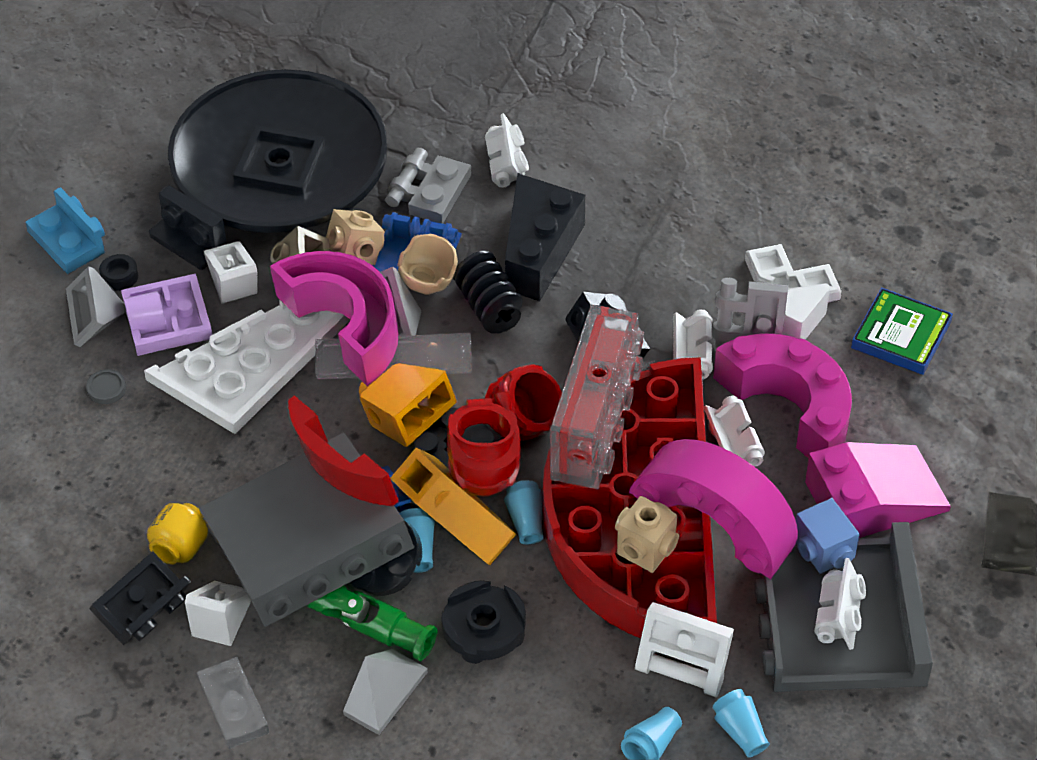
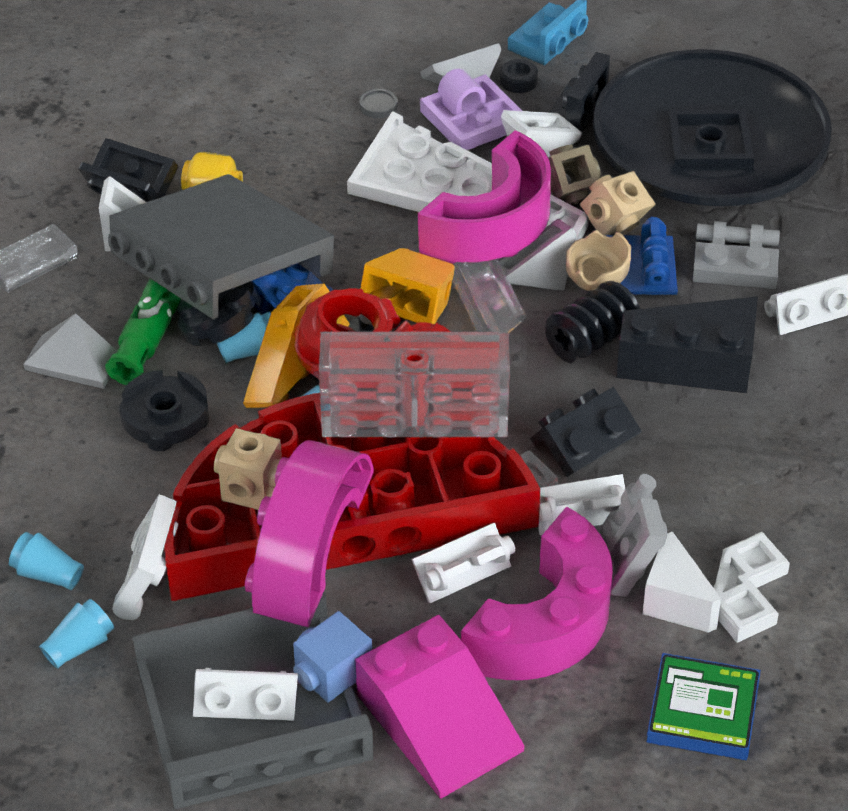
camera: 75 degrees right, 5 degrees down
(358, 479) = (281, 212): red slope -> none

